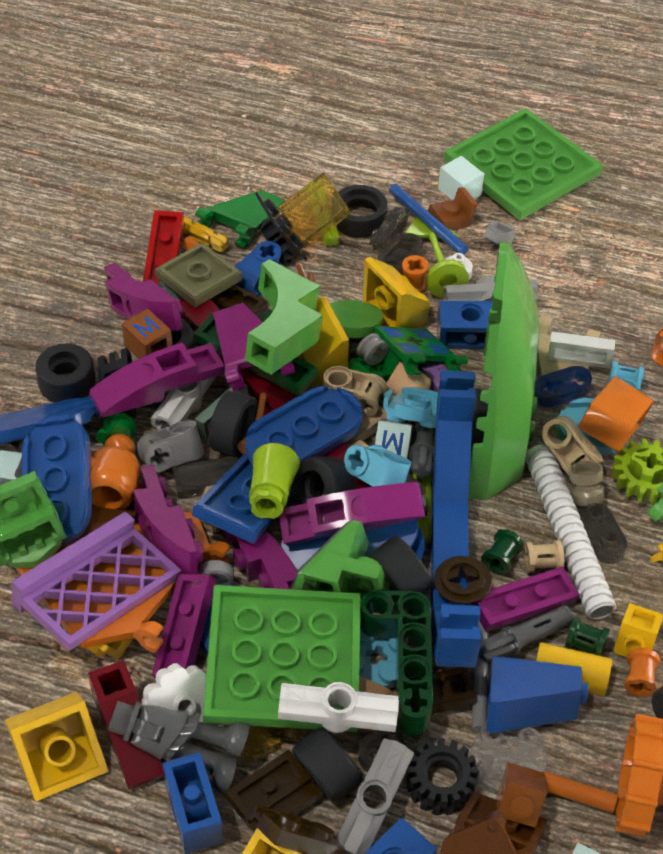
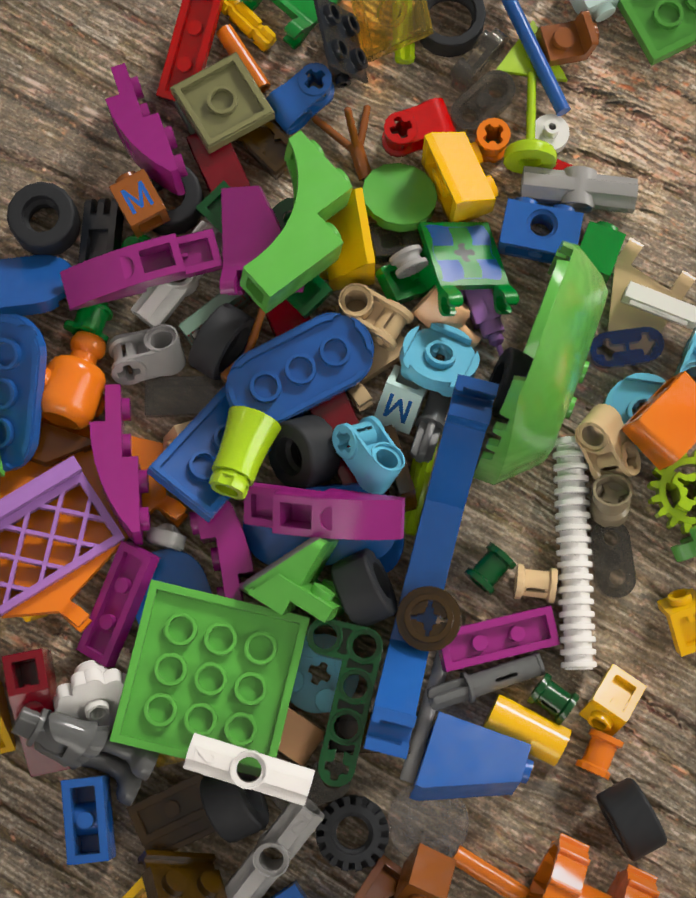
camera: 15 degrees right, 30 degrees up
(348, 279) = (415, 123): none -> red piece
(500, 232) = (619, 87): light grey tile -> none

